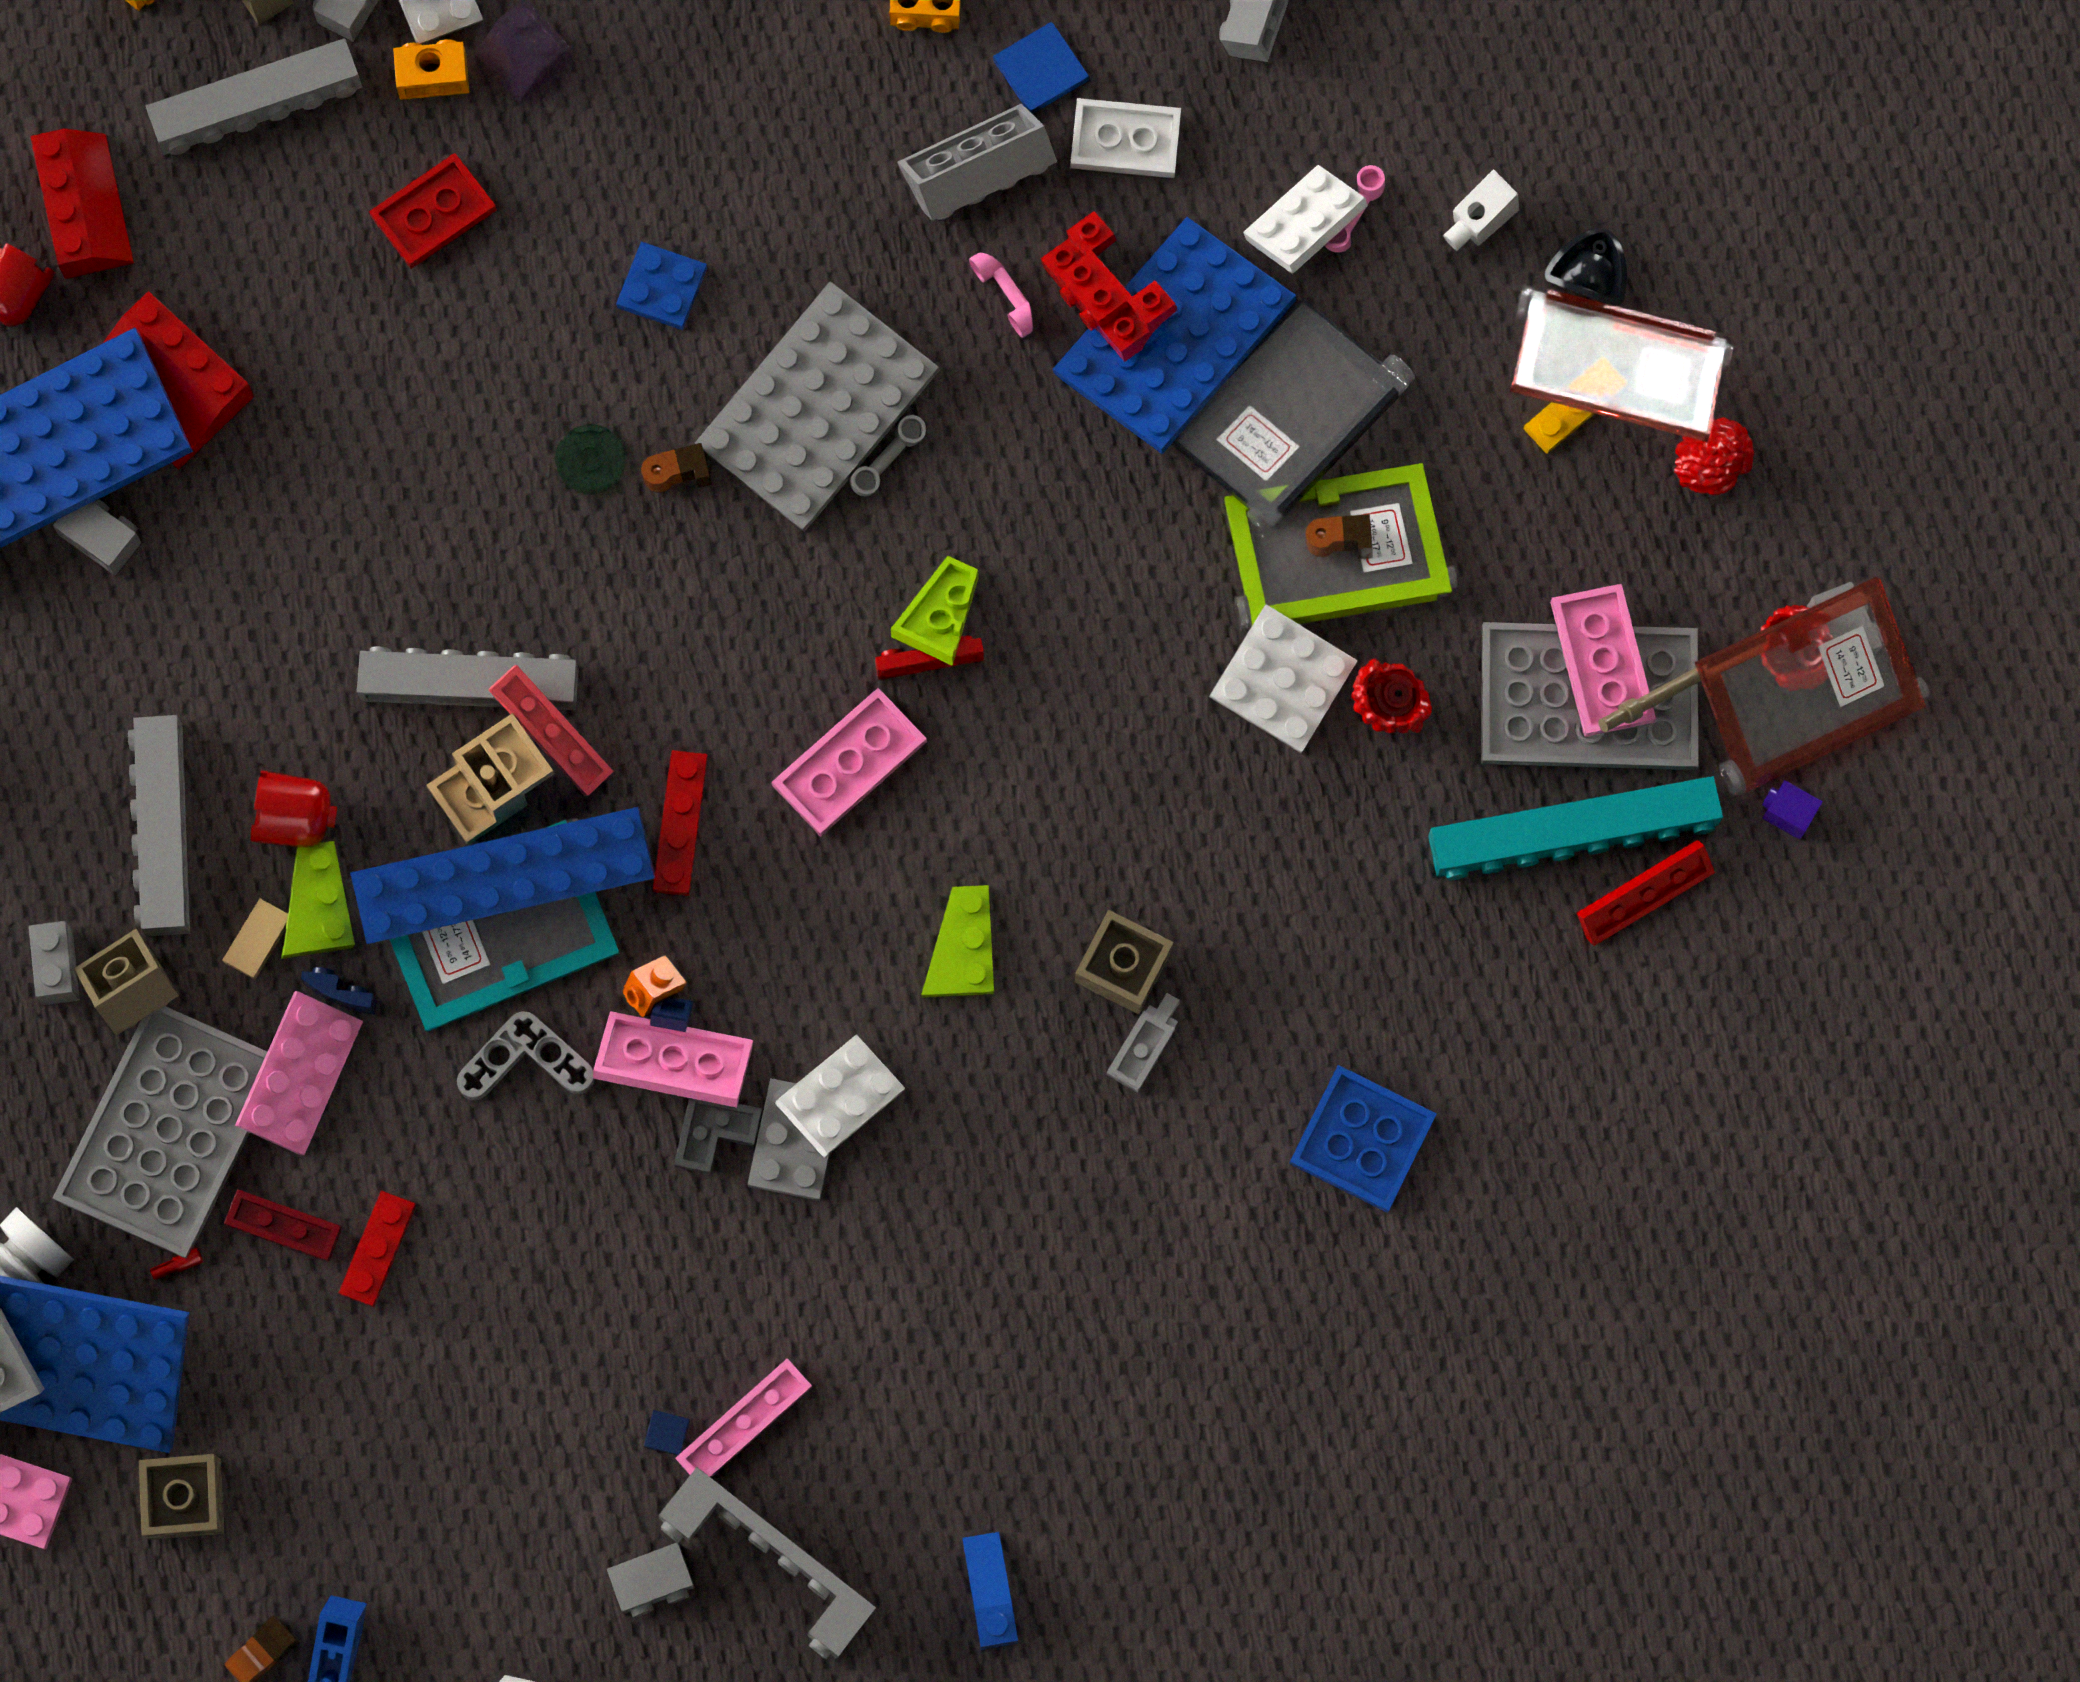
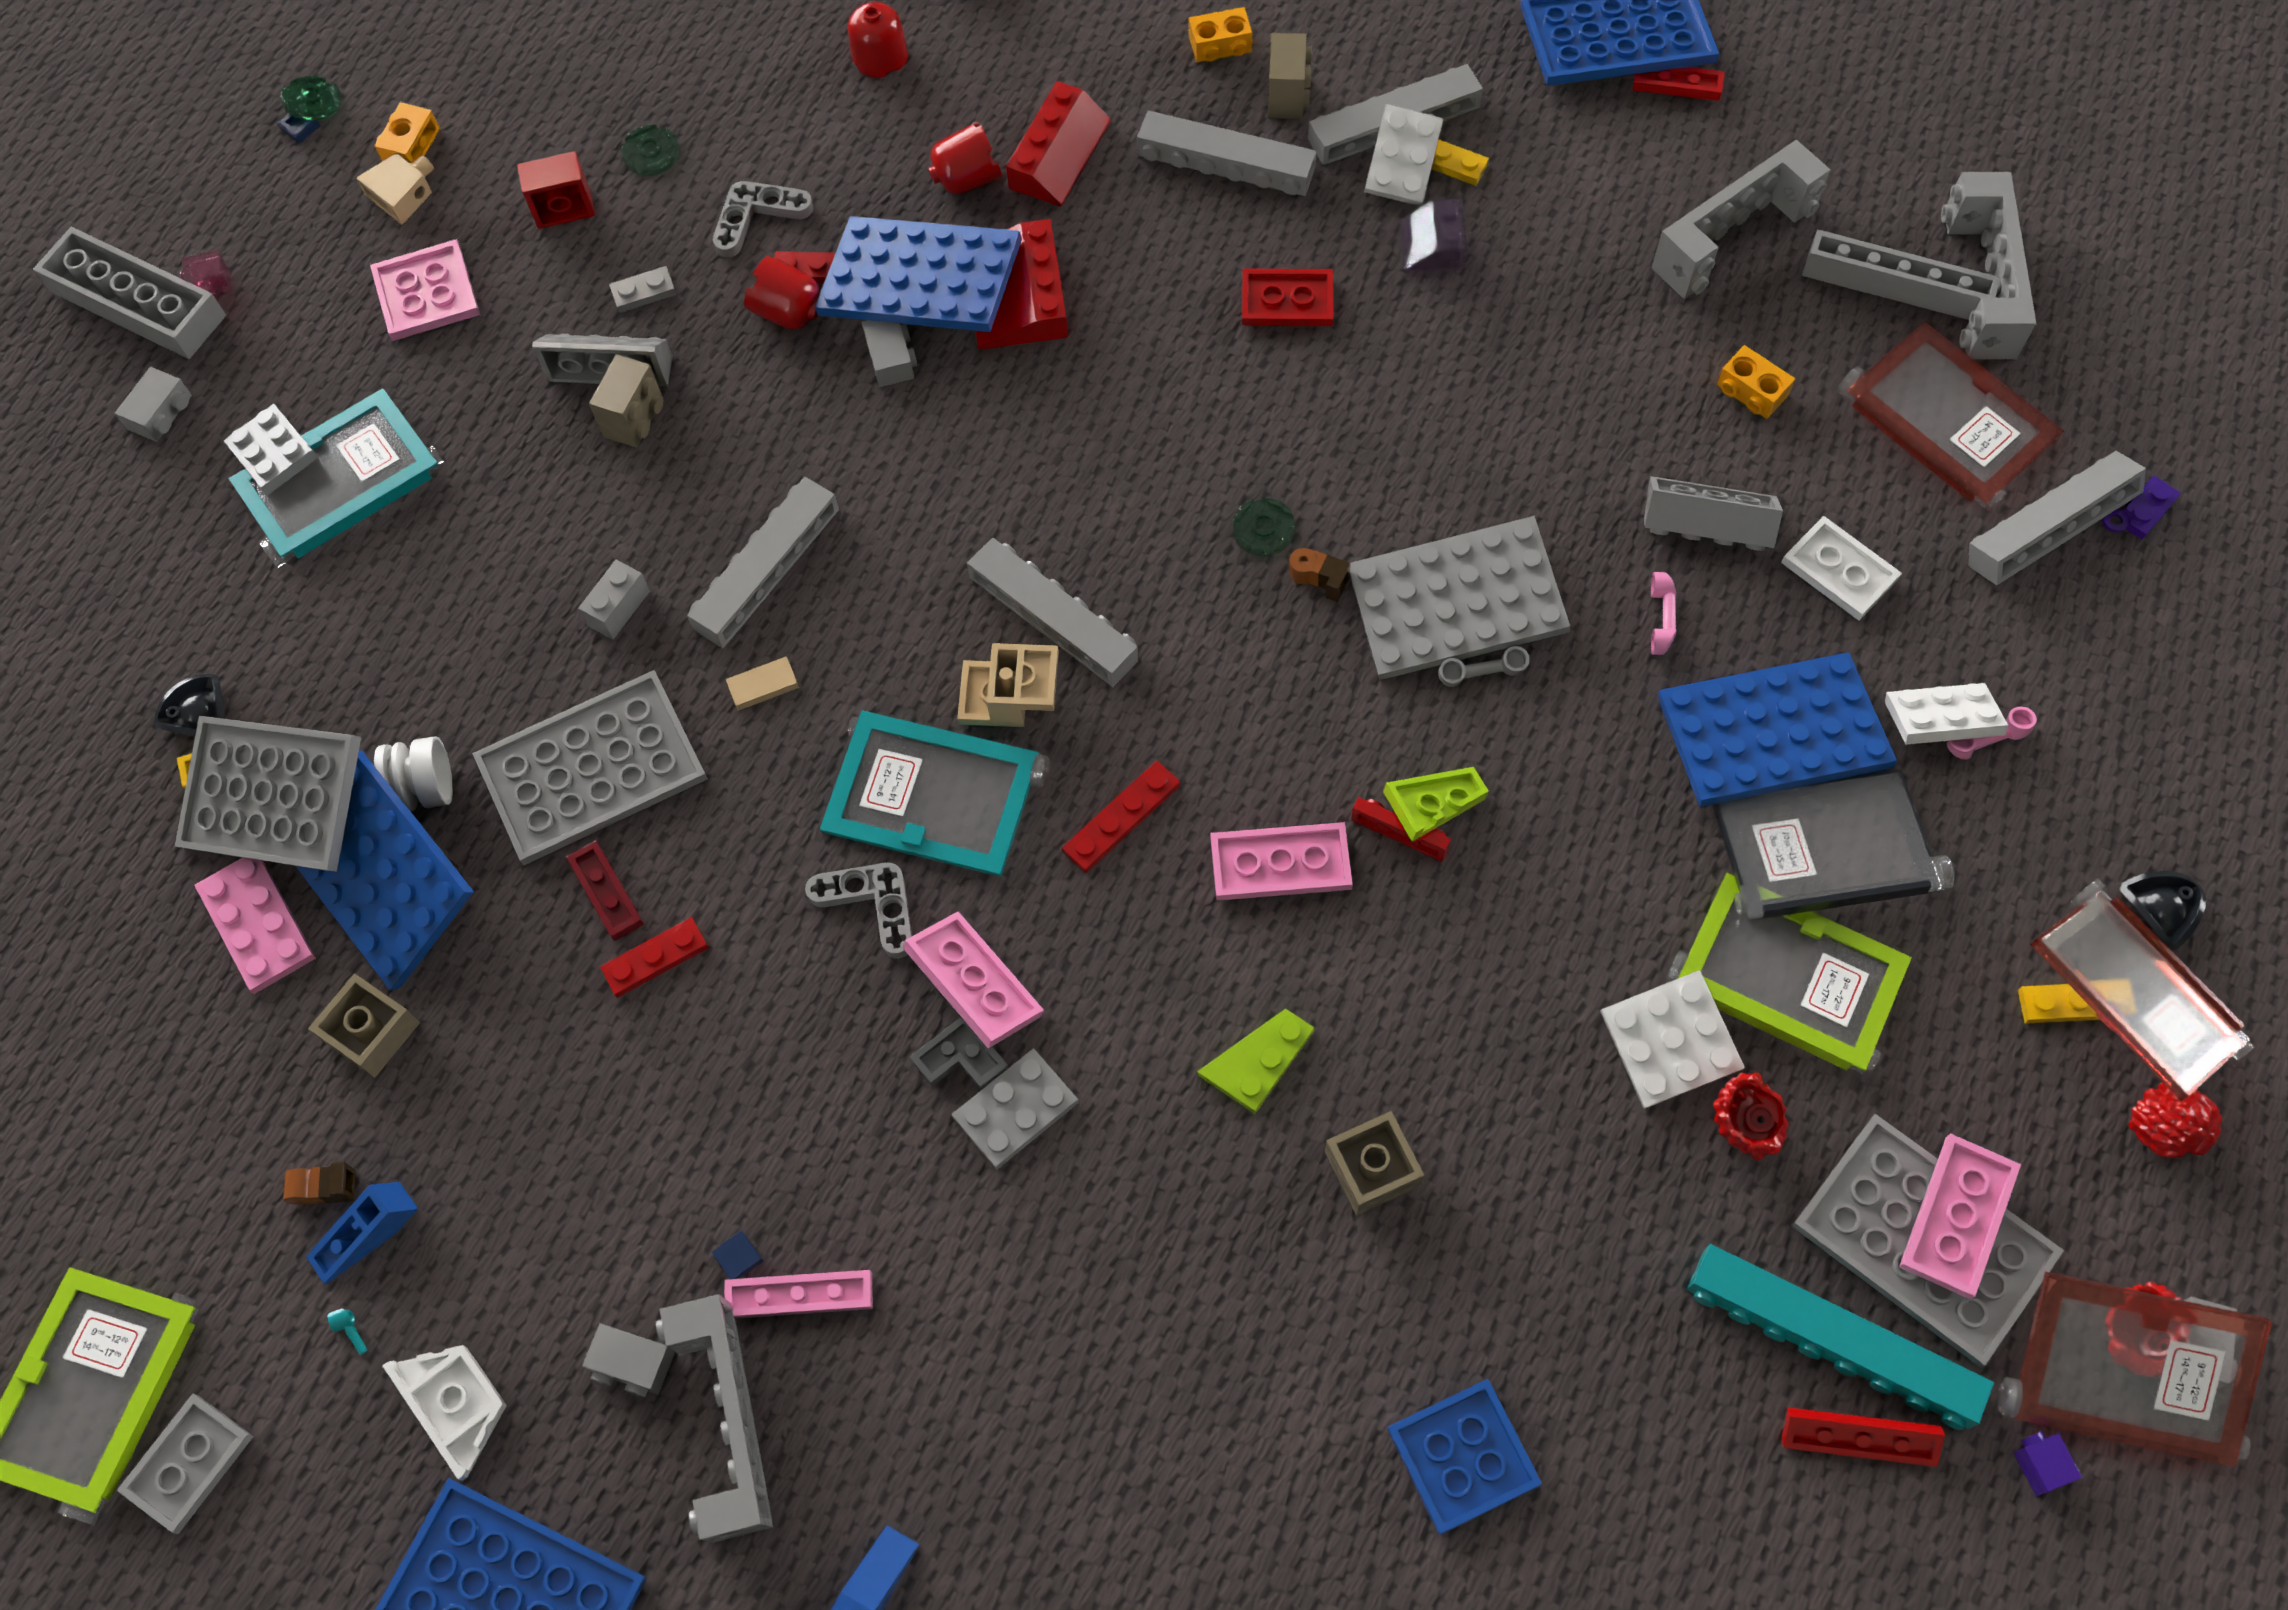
camera: 45 degrees right, 10 degrees down
(126, 982) = (644, 643): dark tan brick -> none
(177, 1264) = (528, 867): red pin -> none
(291, 810) = (853, 609): red cylinder -> none
(299, 1073) = (706, 792): bright pink plate -> none
(318, 906) = (820, 688): lime wing -> none
(329, 987) = (782, 754): dark blue slope -> none
(448, 79) = (1360, 210): light orange brick -> none
(502, 875) = (960, 755): blue brick -> none
(551, 730) = (1078, 681): coral plate -> none
(652, 984) = (1004, 914): orange bracket -> none
(661, 285) = (1409, 447): blue plate -> none
(672, 1014) = (1000, 946): dark blue tile -> none
(840, 1095) = (1072, 1099): white plate -> none
(1041, 68) = (1810, 481): blue tile -> none
(1101, 298) = (1736, 658): red bracket -> none
(1144, 1044) = (1342, 1241): light grey hinge -> none
(1340, 534) = (1801, 961): leg -> none
(1491, 200) = (2103, 800): white torso -> none
(1633, 709) = (1961, 1273): dark tan bar -> none

